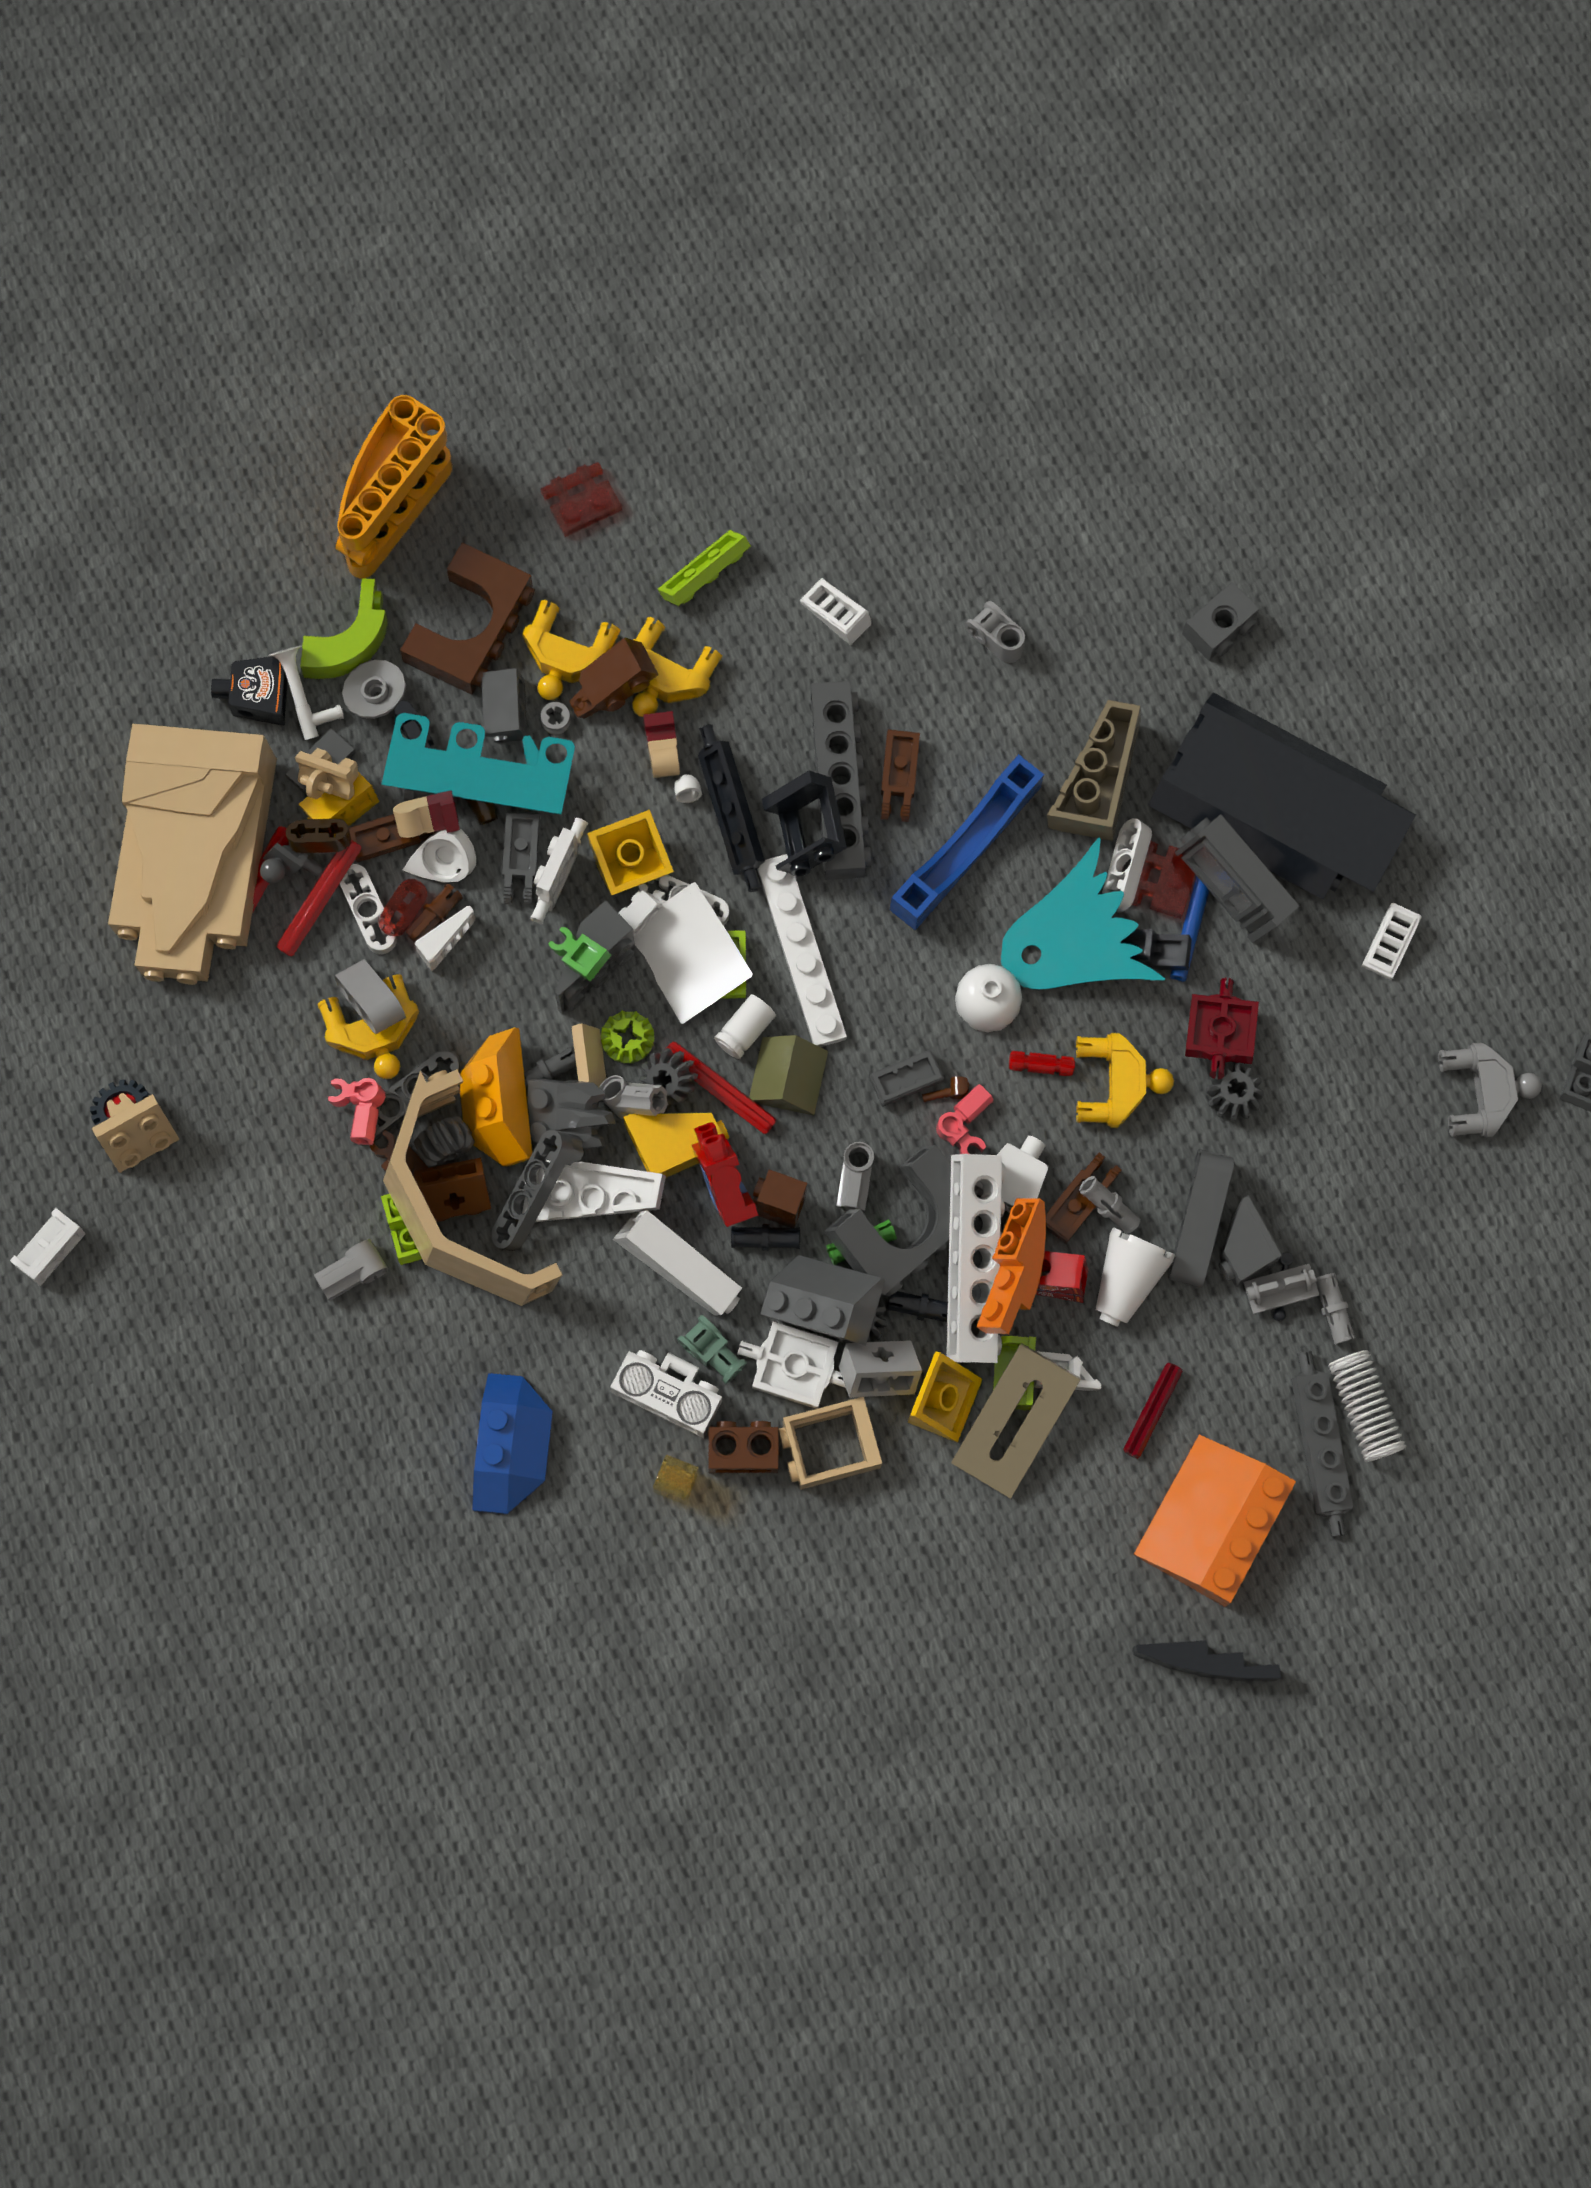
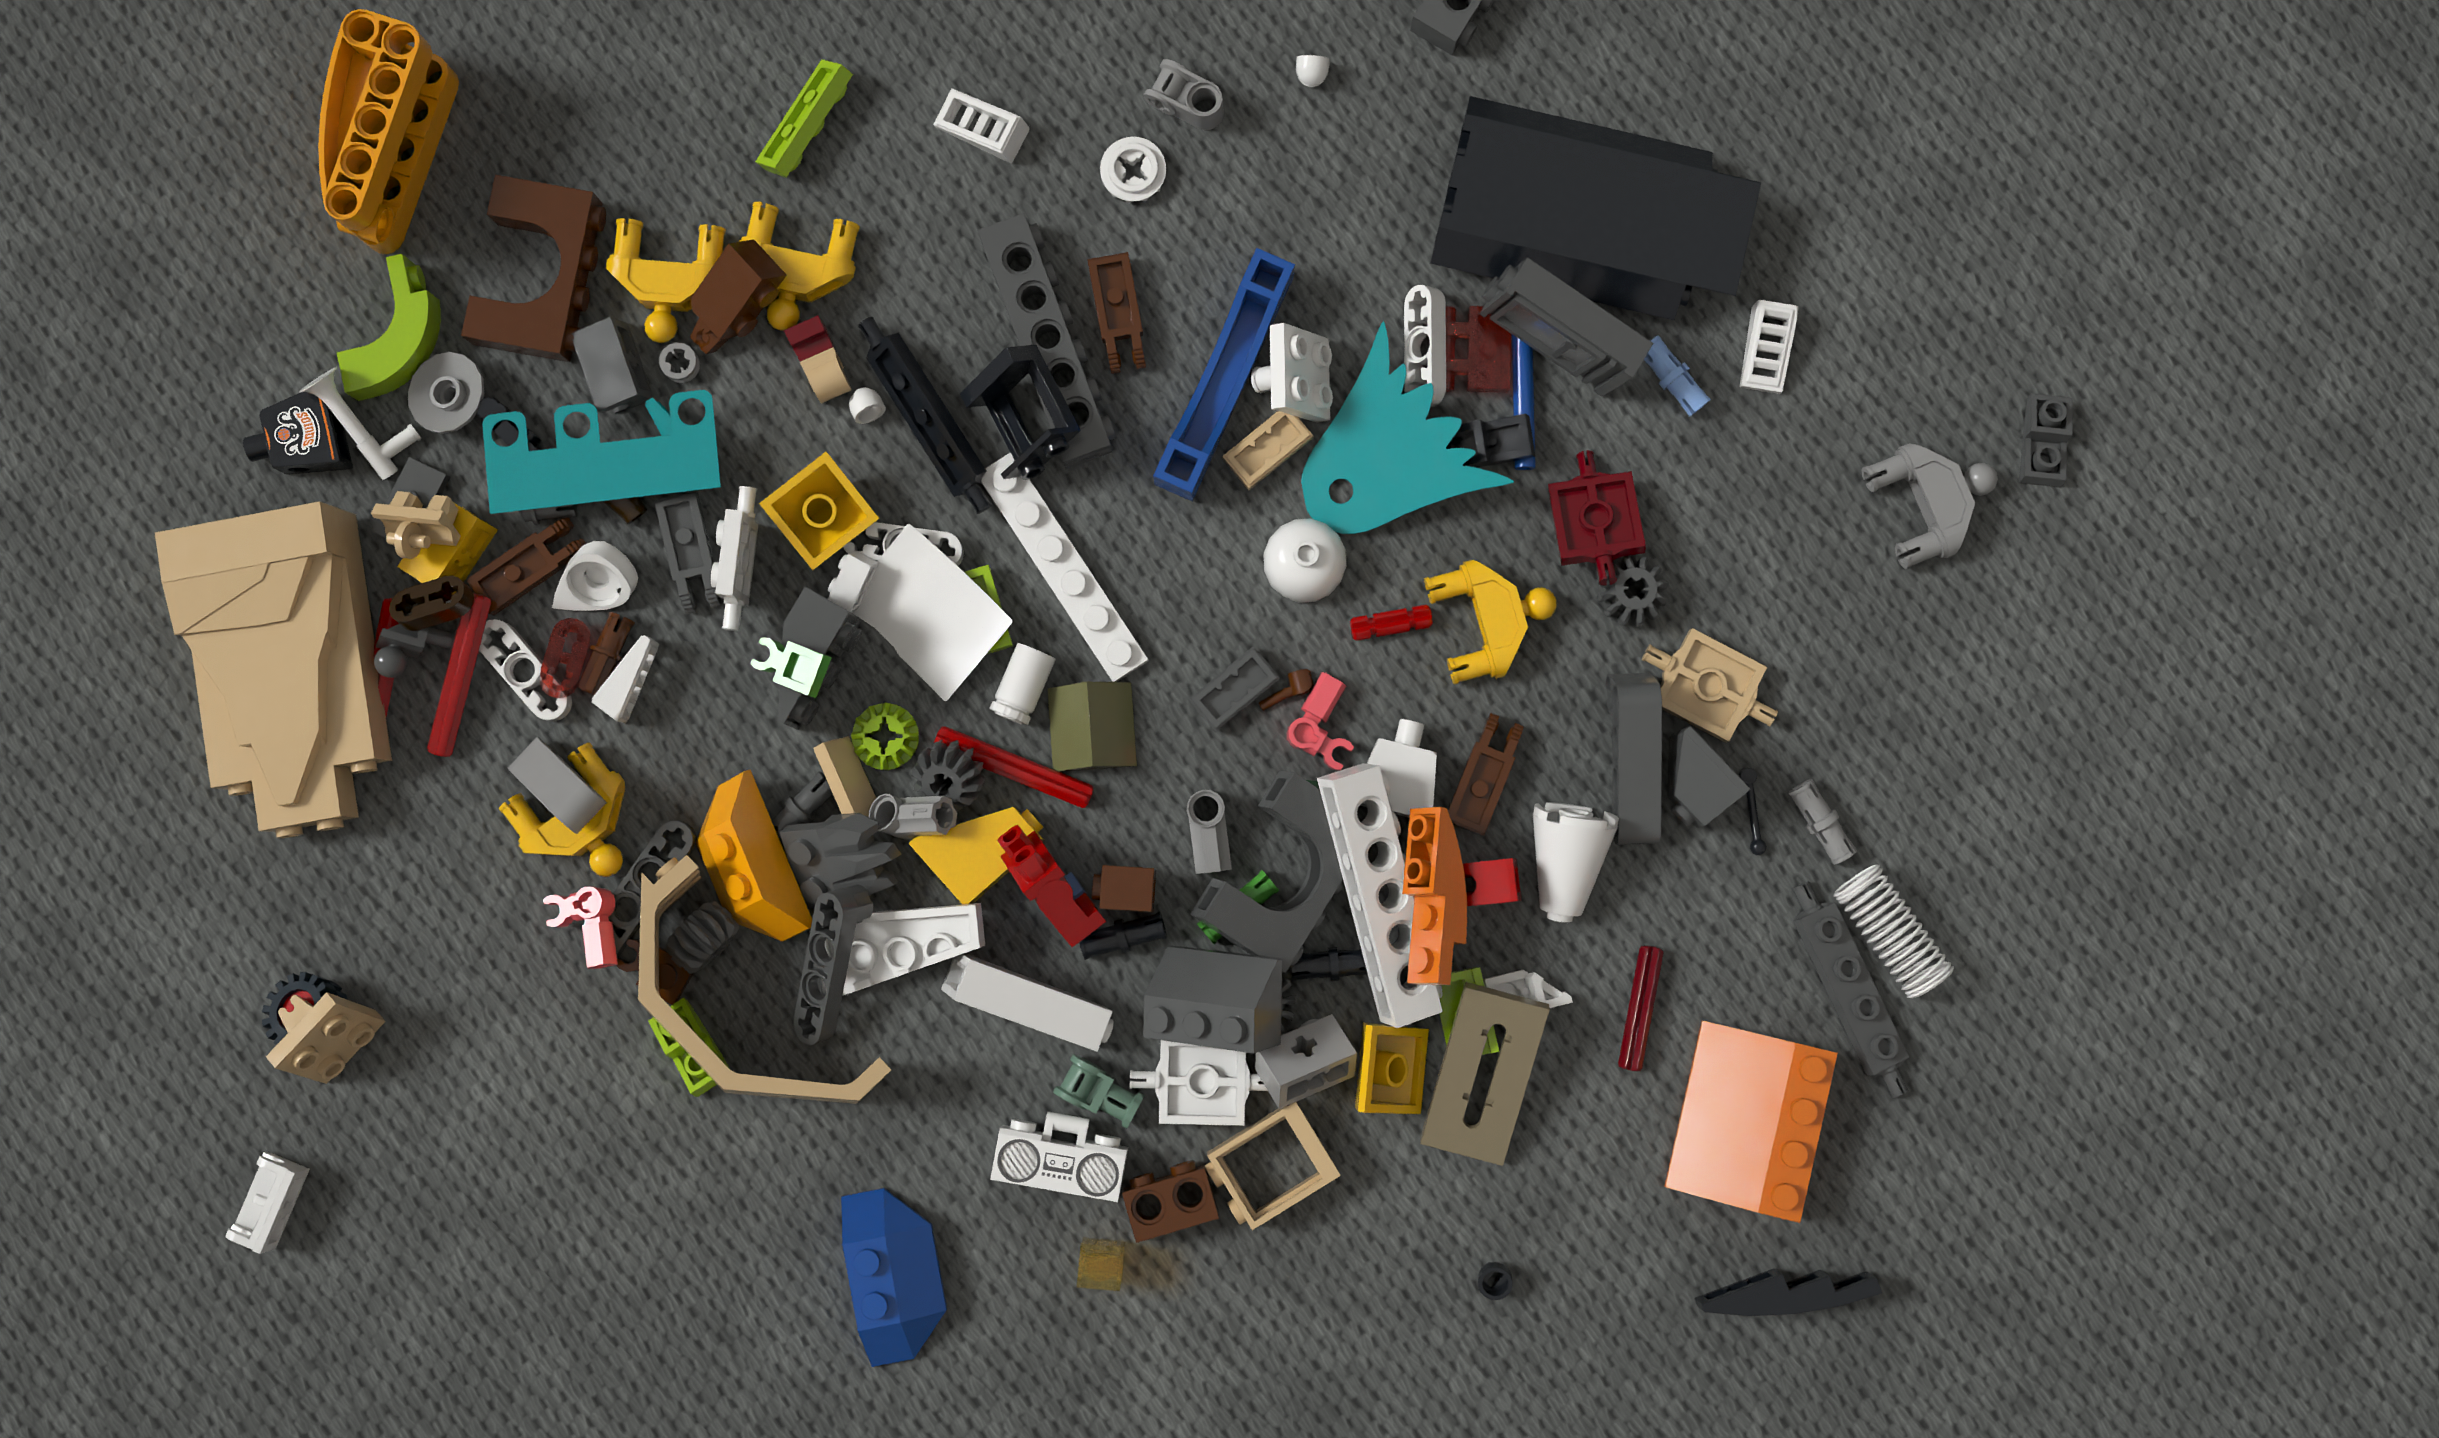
camera: 10 degrees left, 10 degrees up
(357, 1267) = (646, 1116): light grey piece -> none
(426, 815) = (557, 537): leg -> none
(454, 1189) = (729, 992): reddish brown brick -> none
(584, 507) = (636, 81): clear red plate -> none
(942, 661) = (1131, 151): none -> white gear
(983, 1590) = (1502, 1285): none -> black hinge
(984, 906) = (1267, 448): none -> tan plate
(1023, 856) = (1297, 373): none -> white plate
(1096, 786) = (1360, 255): dark tan wedge -> none
(1098, 640) = (1312, 69): none -> white hinge
(1109, 1204) = (1522, 777): light grey pin -> none
(1275, 1179) = (1710, 685): none -> tan plate
(1281, 1288) = (1754, 817): light grey hinge -> none
(1312, 942) = (1675, 377): none -> light blue pin

